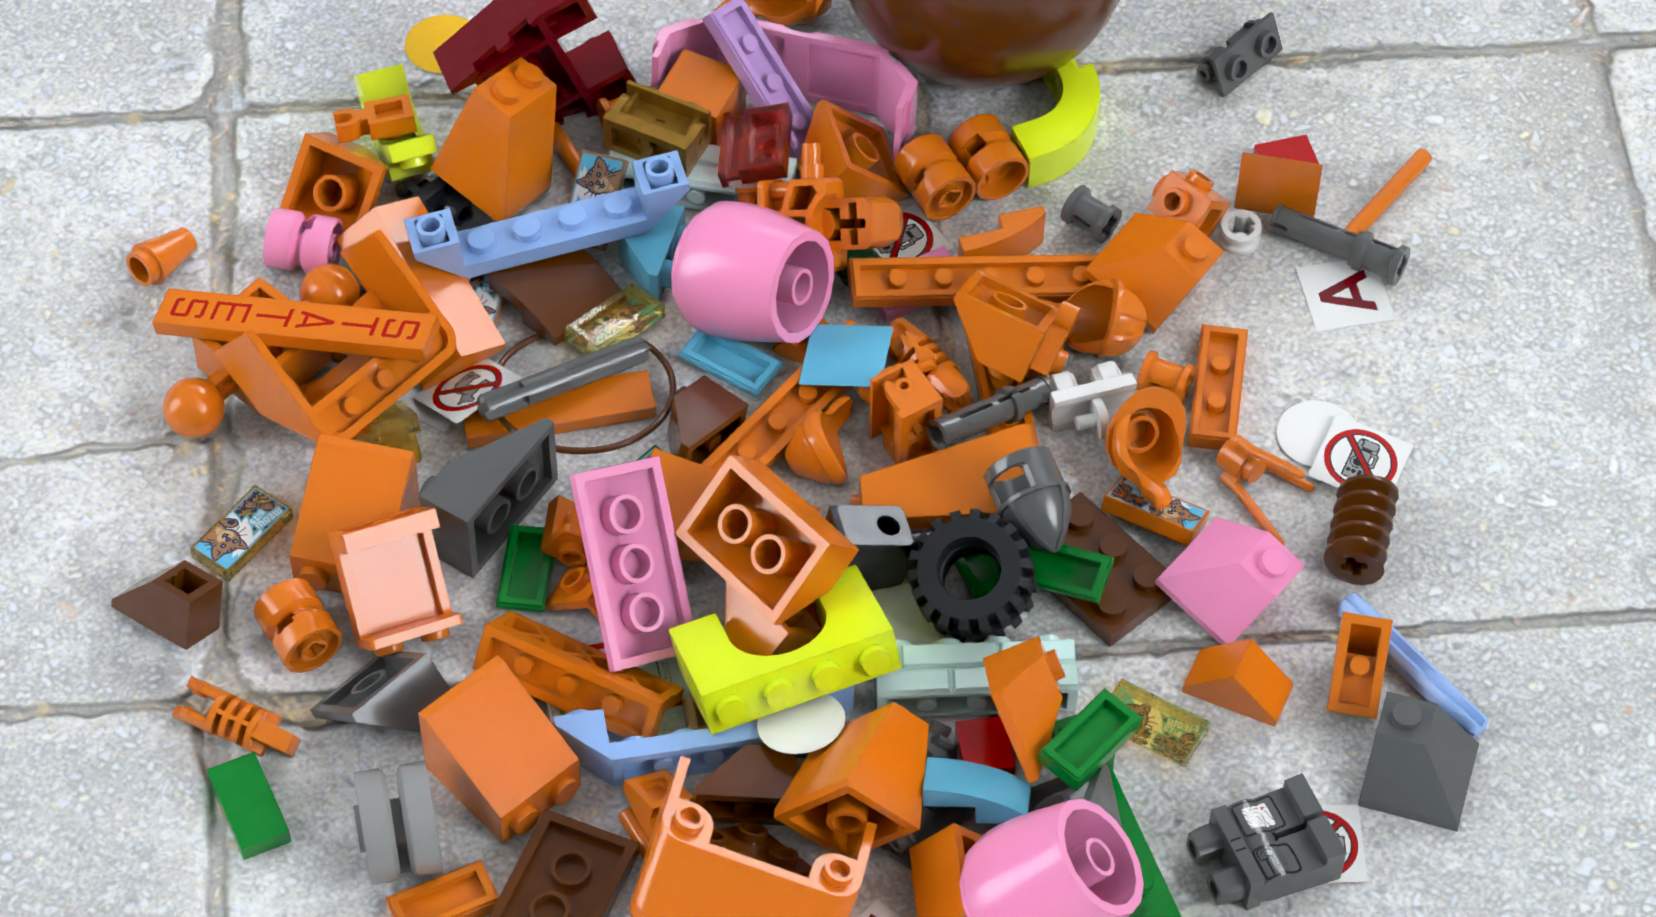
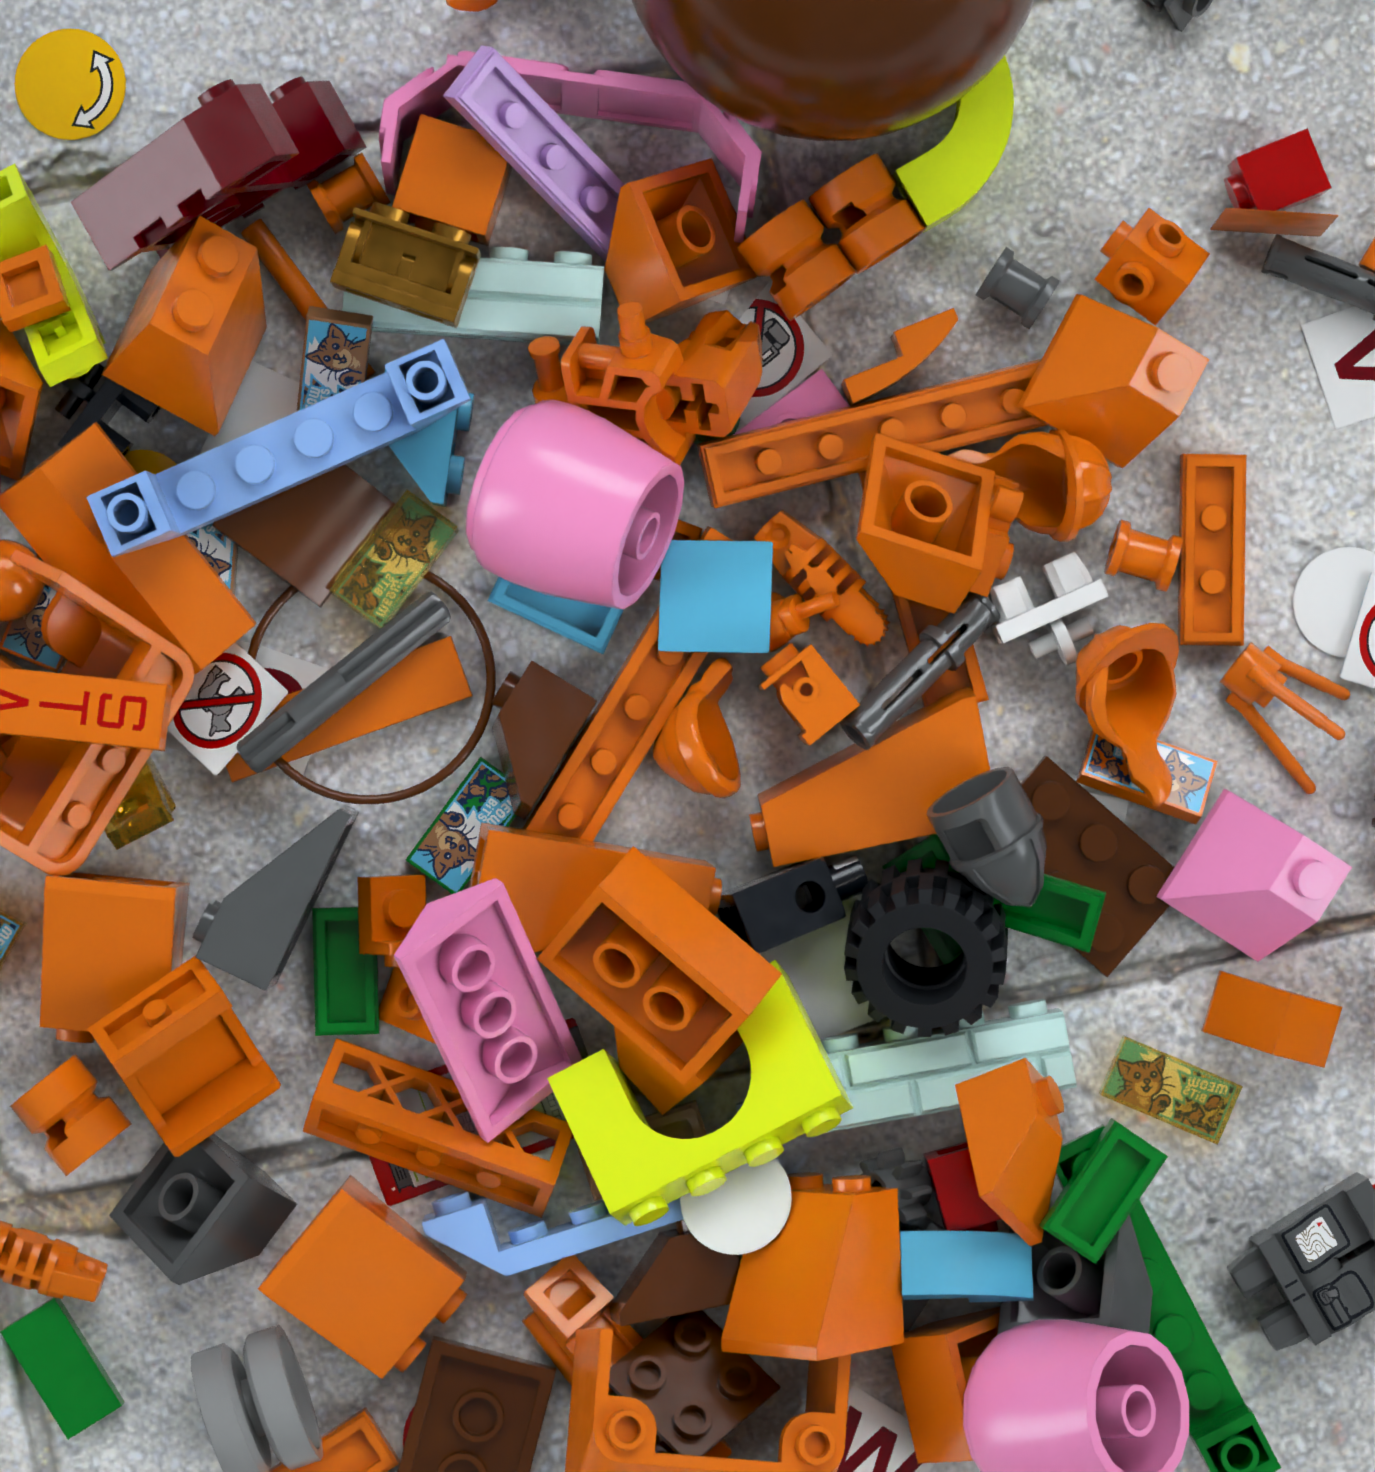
camera: 10 degrees left, 35 degrees up
(755, 145) = (546, 273): clear red plate -> none
(1240, 243) = (1225, 302): white bush -> none

